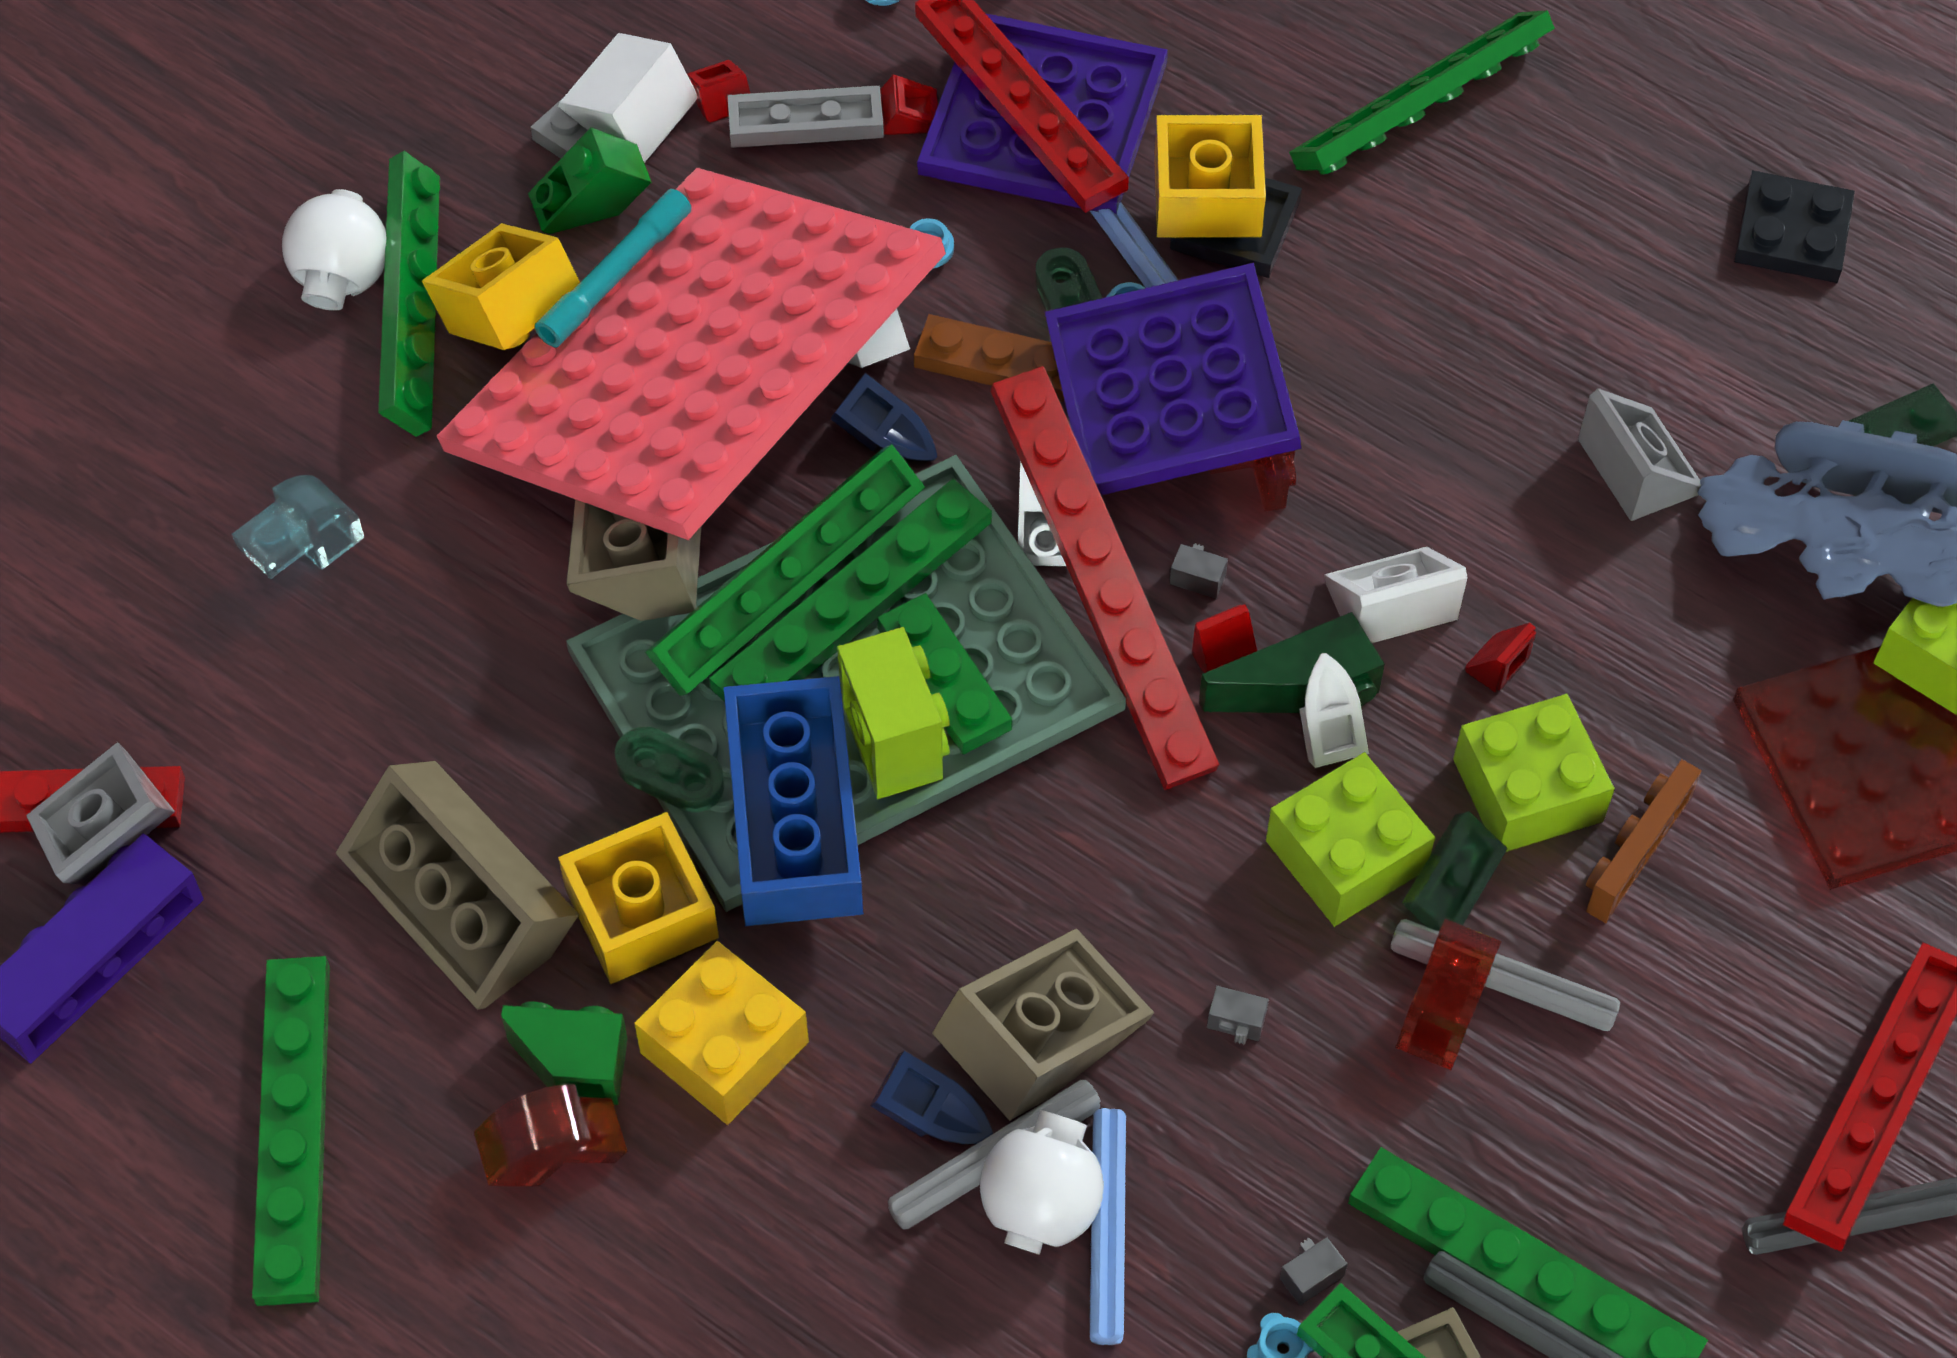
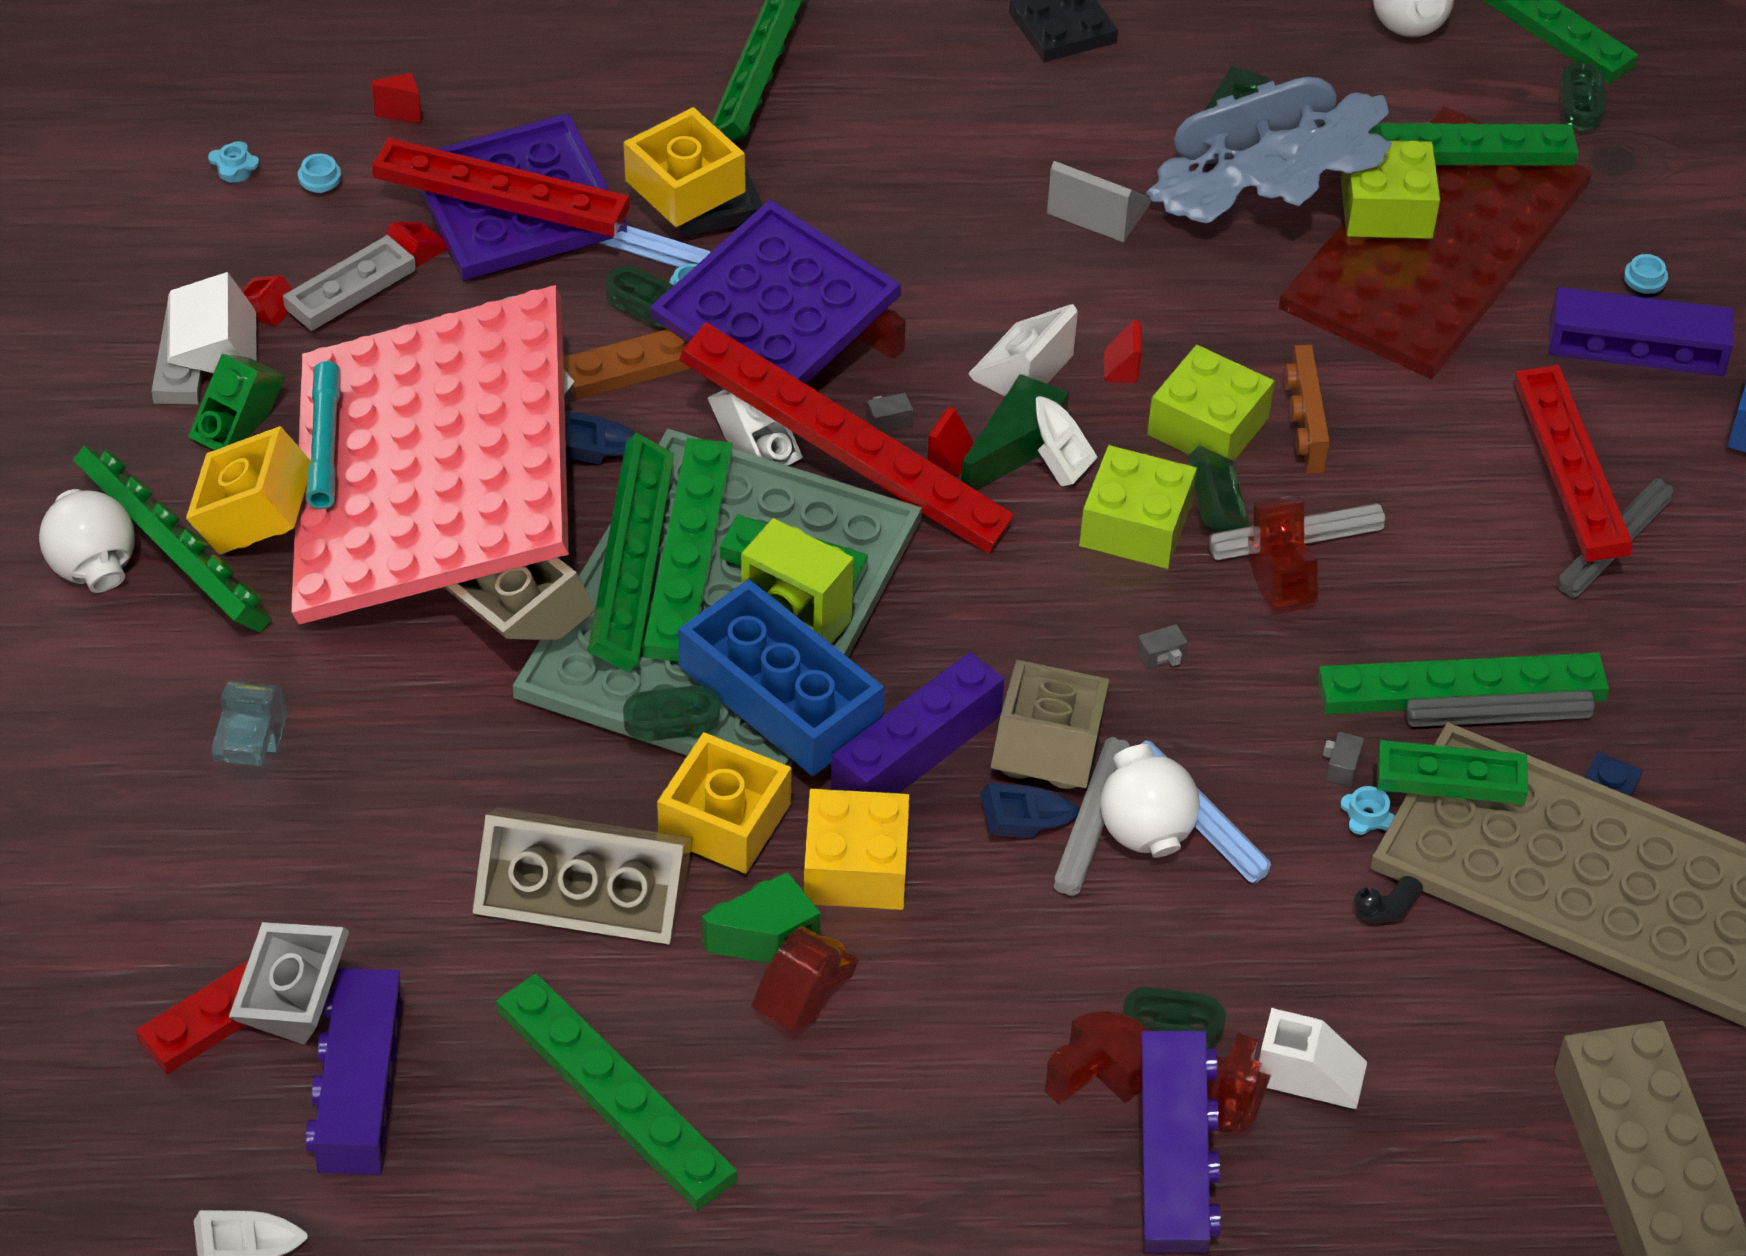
camera: 40 degrees left, 10 degrees down
(892, 947) = (921, 730): none -> dark purple brick

